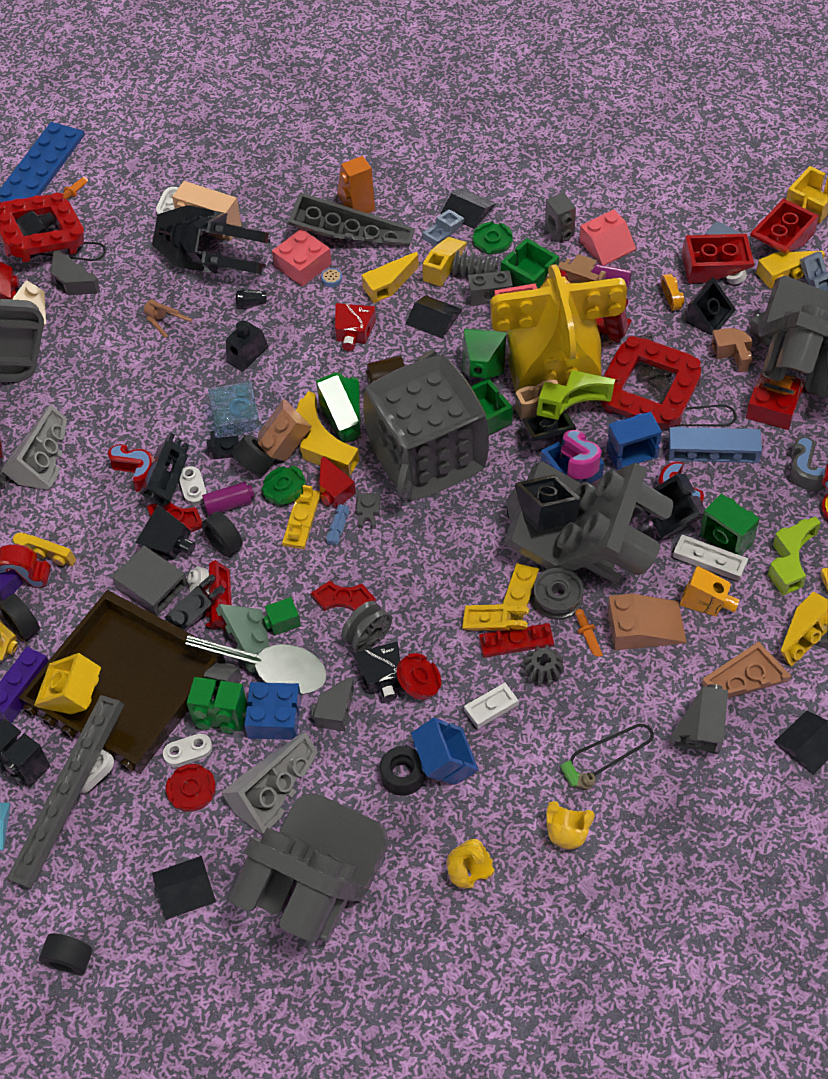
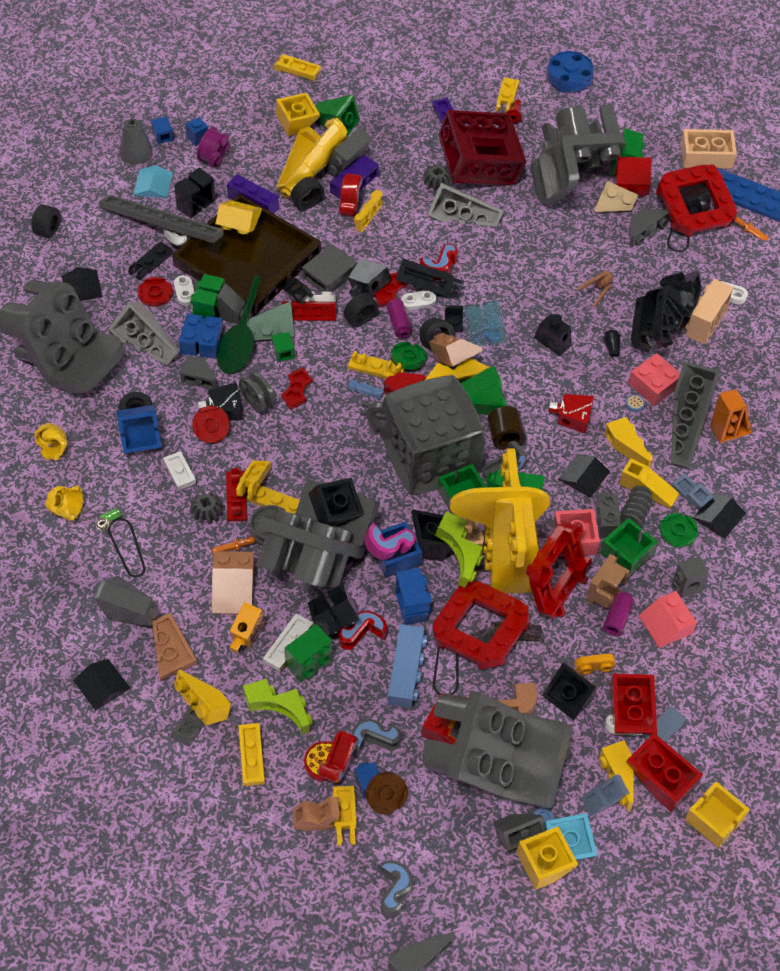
camera: 90 degrees right, 0 degrees up
(132, 801) = (150, 260): none -> black hinge

